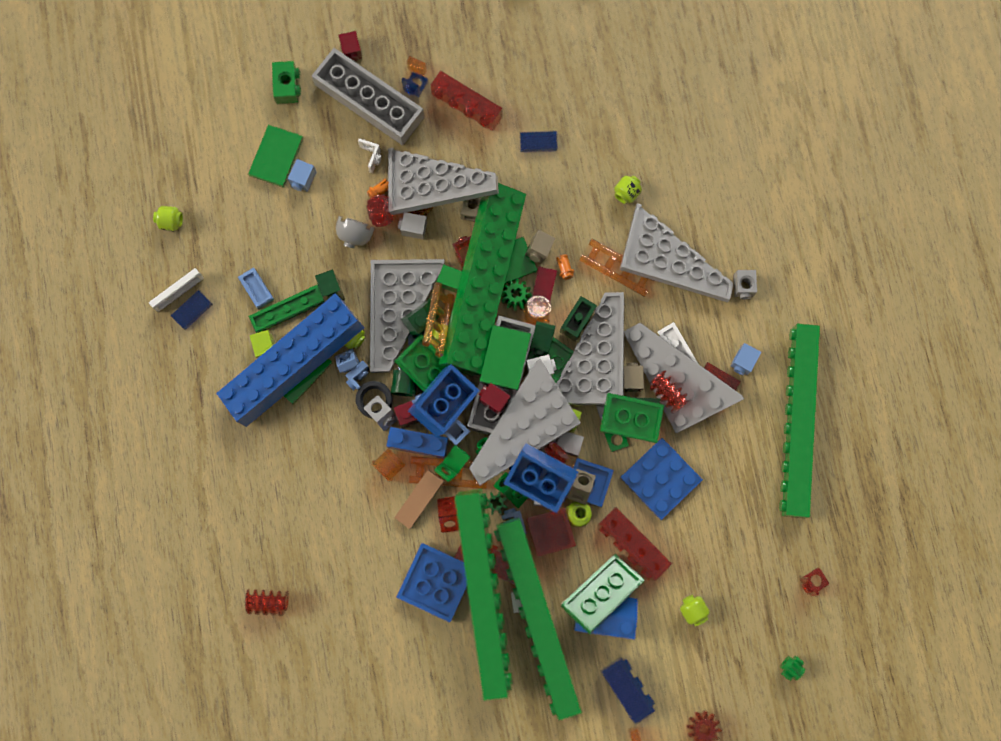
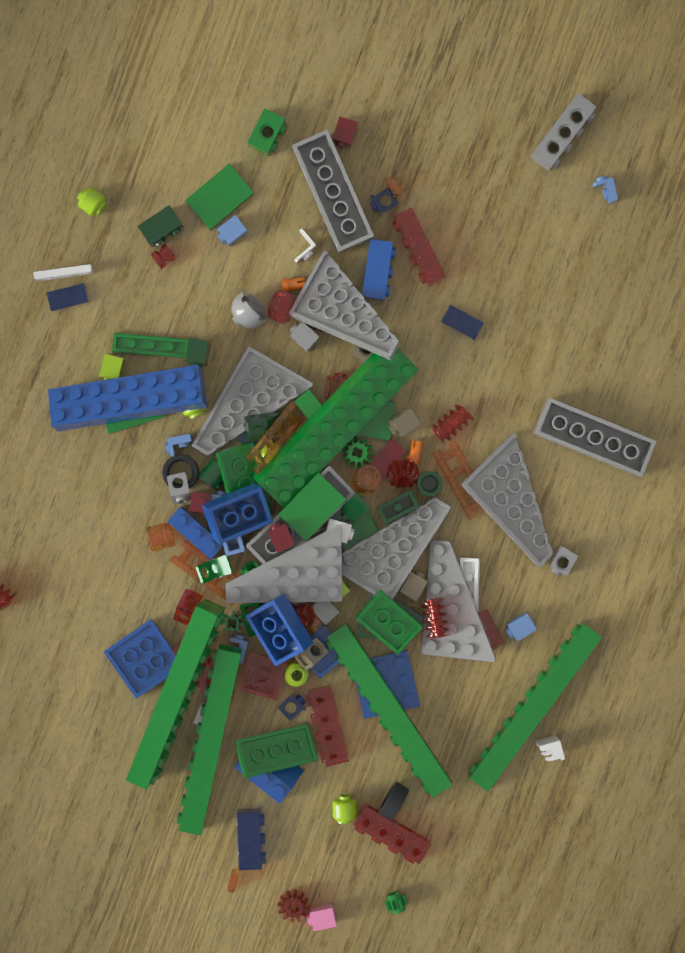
camera: 35 degrees right, 10 degrees up
(239, 206) = (160, 227): none -> dark green brick
(255, 228) = (165, 255): none -> clear red wheel
(255, 288) = (134, 310): medium blue tile -> none
(346, 361) = (176, 426): medium blue bracket -> none
(419, 499) = (169, 581): medium nougat tile -> none
(442, 136) = (378, 270): none -> blue brick
(565, 288) = (402, 473): none -> clear red gear
(579, 223) = (451, 423): none -> clear red piece
(592, 284) = (429, 483): none -> dark green piece
(596, 539) = (298, 701): none -> clear blue bracket
(627, 189) = (513, 415): lime head -> none
(680, 496) = (389, 709): none -> green brick
(706, 167) = (594, 437): none -> light grey brick
(733, 576) = (393, 801): none -> black tyre
(736, 723) = (322, 917): none -> bright pink brick
(749, 608) = (392, 833): none -> clear red brick
(809, 587) = (452, 845): clear red bracket -> none
(841, 444) = (549, 746): none -> white hinge

